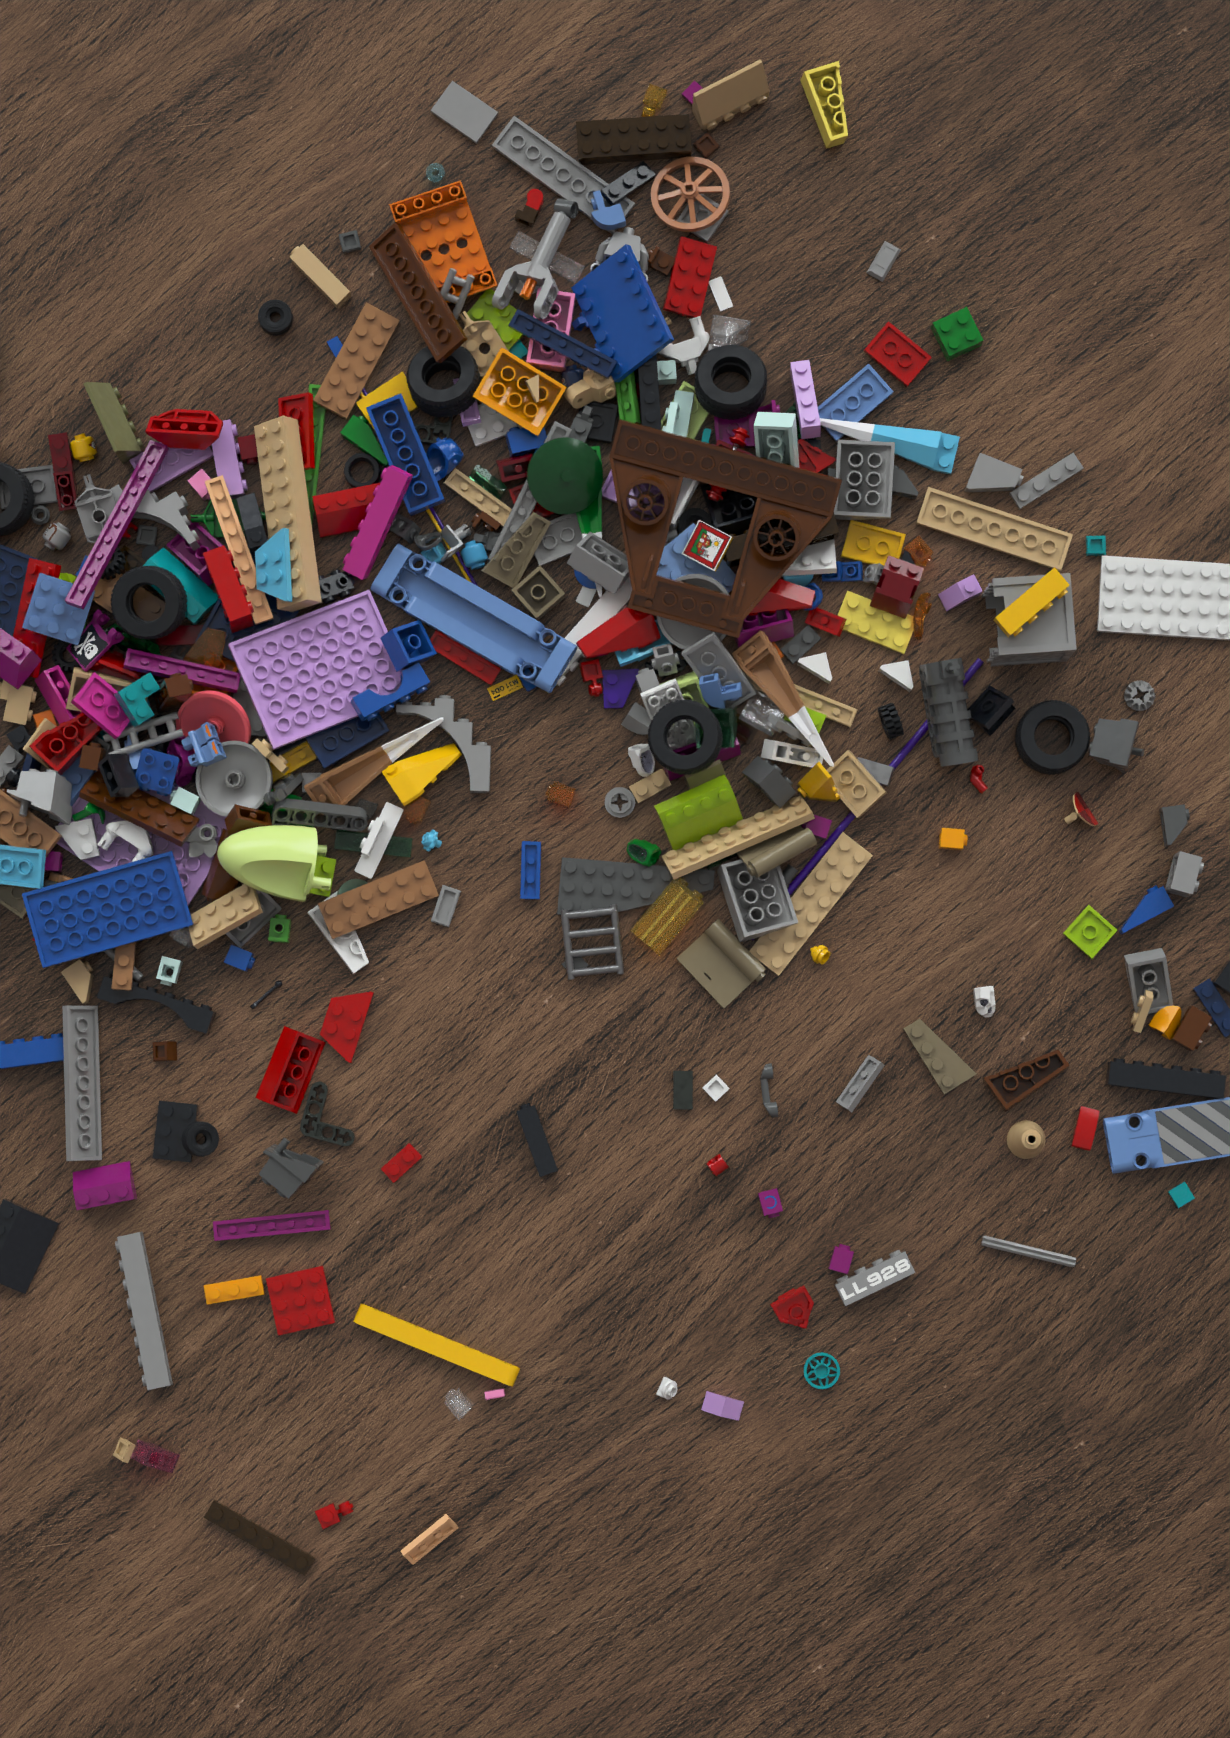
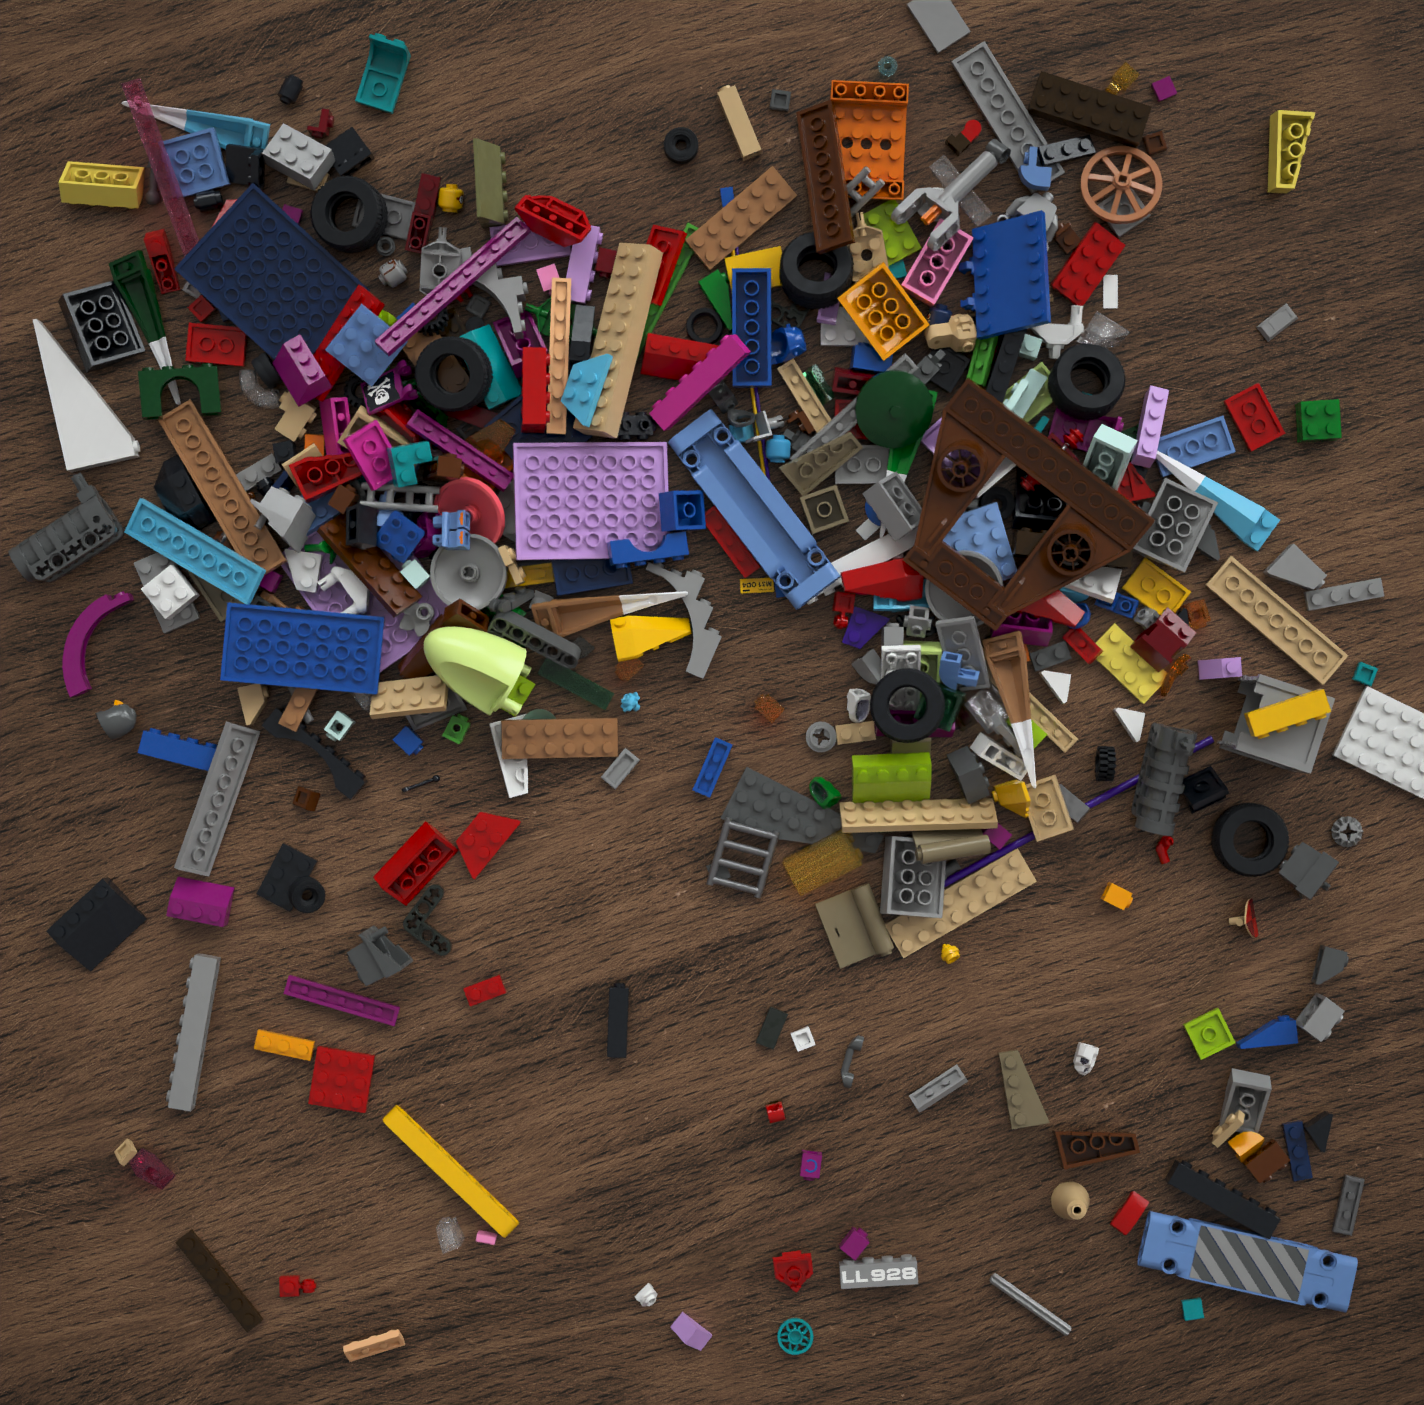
camera: 20 degrees right, 5 degrees up
(378, 839) = (581, 683): white bracket -> none
(533, 386) = (898, 313): tan piece -> none
(562, 344) = (942, 282): dark blue plate -> none
(707, 545) = (1001, 530): tile -> none
(730, 95) = (1198, 105): tan slope -> none

